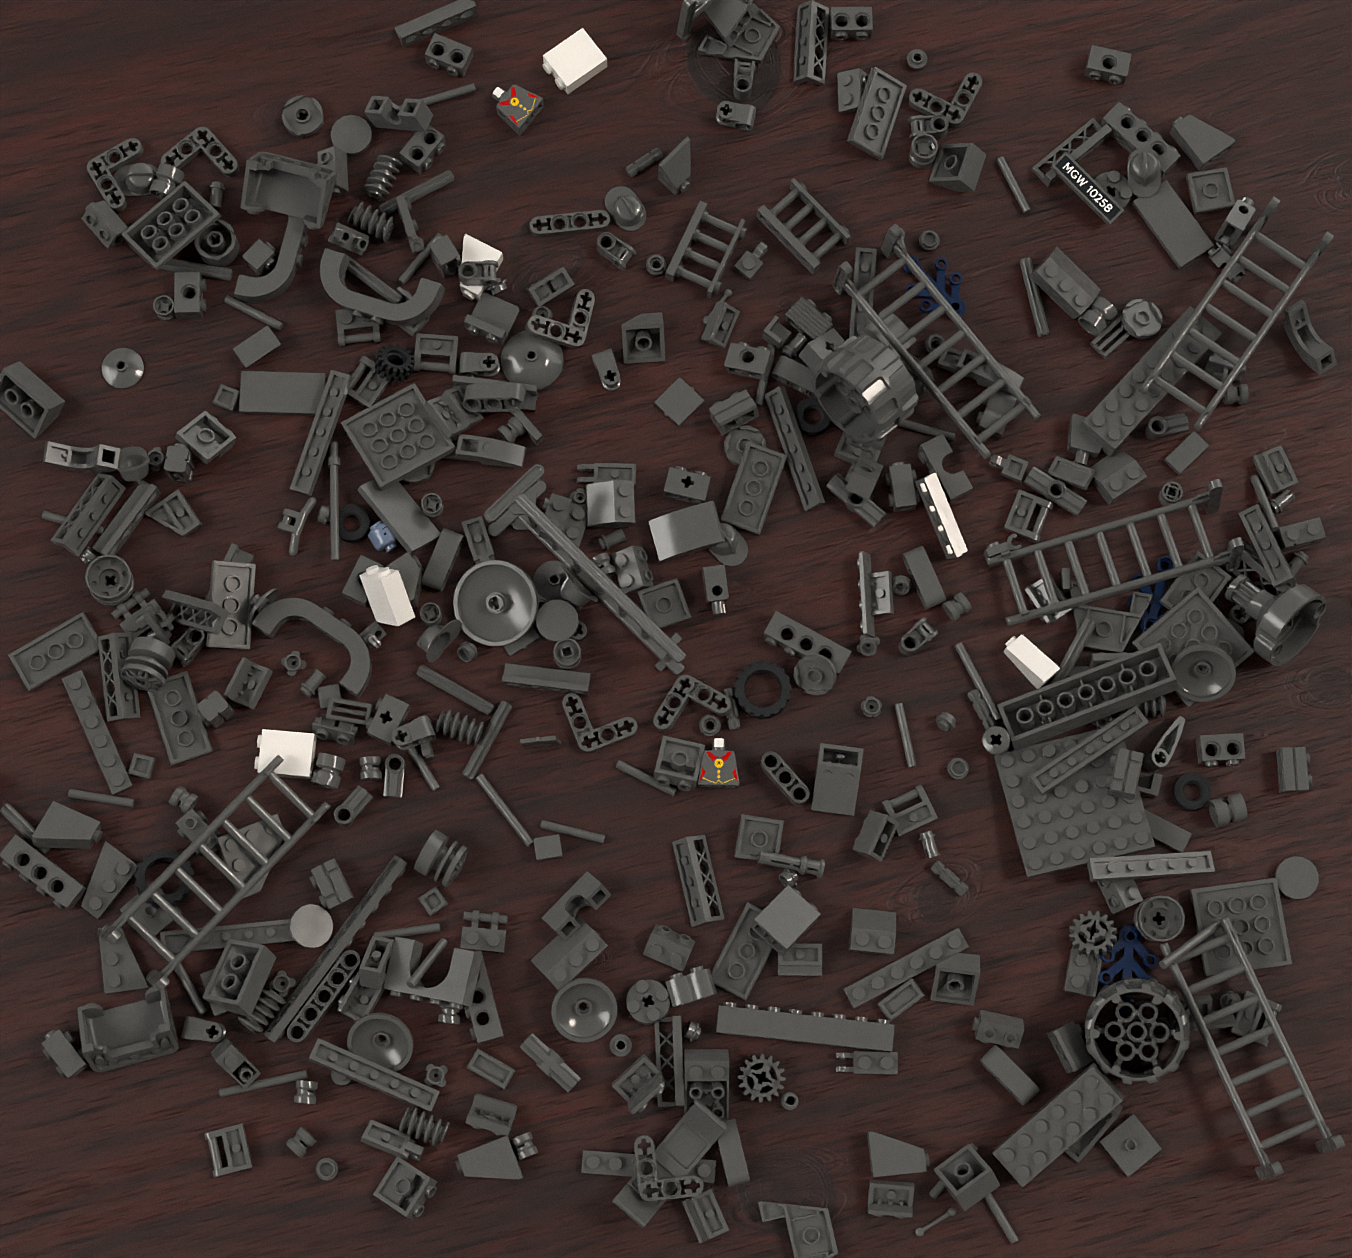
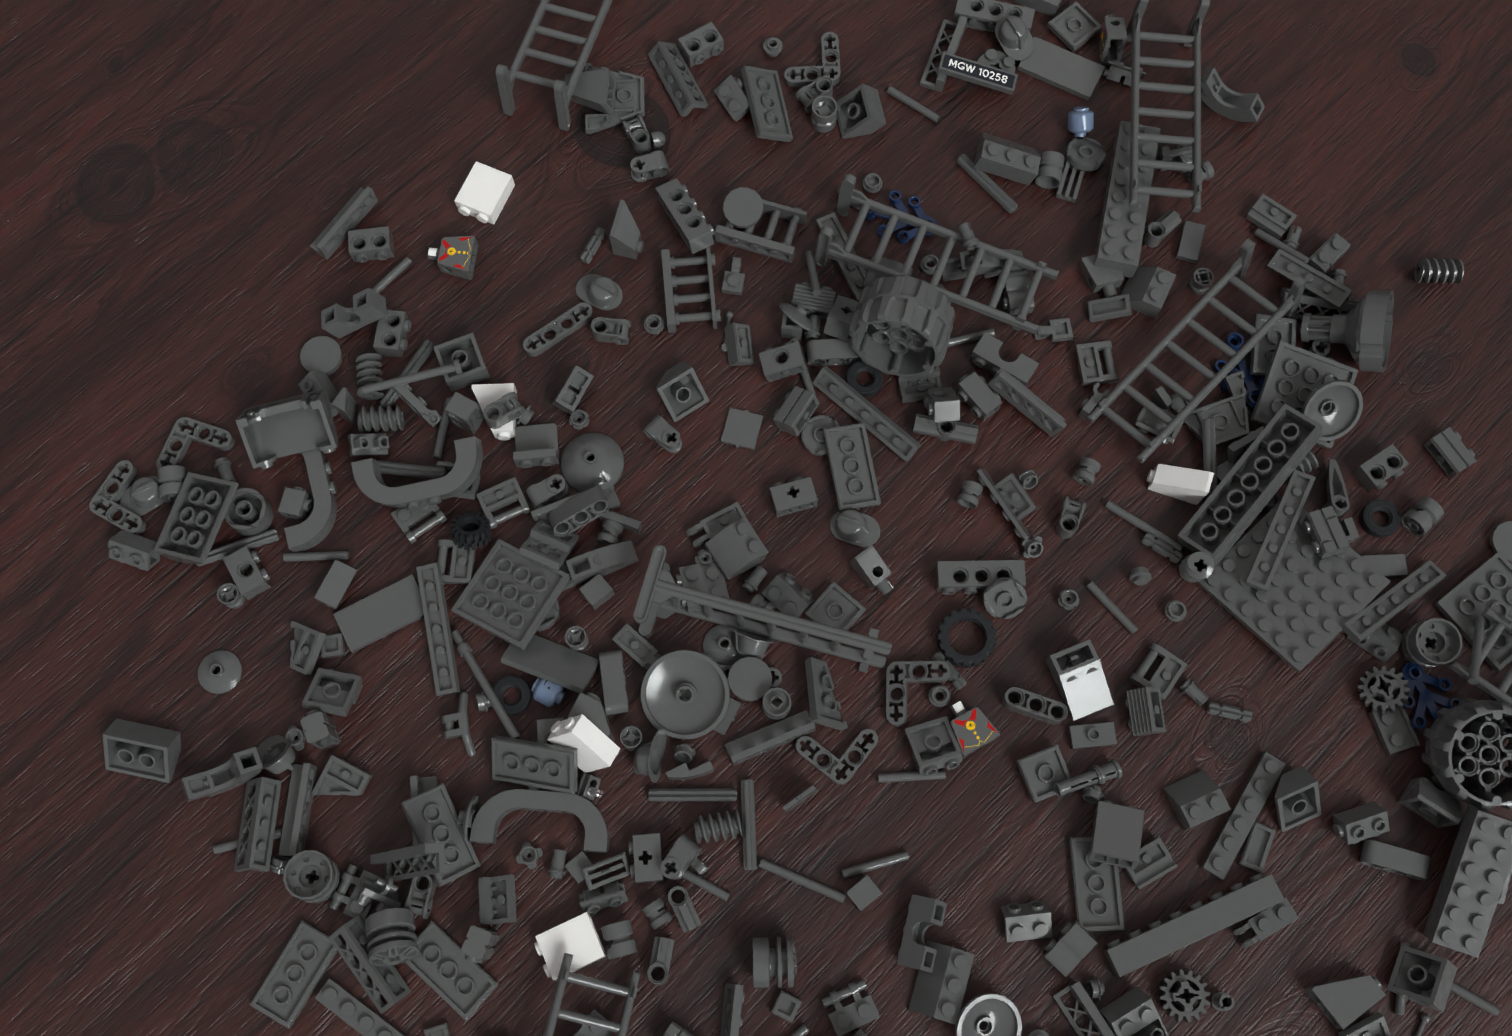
camera: 25 degrees left, 5 degrees down
(203, 387) = (305, 647): none -> dark grey wing
(308, 106) = (270, 373): dark grey plate -> none
(338, 590) = (534, 764): none -> dark grey tile
(348, 194) = (346, 405): none -> dark grey slope
(457, 667) = (683, 773): none -> dark grey slope
(459, 211) = (455, 367): none -> dark grey bar
(468, 208) = (472, 362): none -> dark grey brick
(471, 475) = (597, 591): none -> dark grey panel
(572, 327) = (610, 418): dark grey beam -> none
(608, 669) = (822, 703): none -> dark grey wing
(653, 1013) = (1050, 993): dark grey plate -> none
(686, 531) = (817, 535): dark grey slope -> none
(694, 880) = (1012, 845): dark grey fence -> none
(739, 180) = (685, 216): none -> dark grey brick
(759, 92) = (657, 139): none -> dark grey hinge
(782, 327) = (797, 314): none -> dark grey dish
(795, 201) = (743, 207): none -> dark grey tile
(819, 831) = (1092, 735): none -> dark grey plate
(822, 295) = (812, 273): none -> dark grey bar
(841, 569) = (970, 494): none -> dark grey wheel
(923, 577) = (1043, 462): dark grey beam -> none
(976, 337) = (968, 236): none -> dark grey pin
(1067, 499) = (1118, 330): dark grey piece -> none
(1155, 285) = (1080, 121): none -> sand blue head

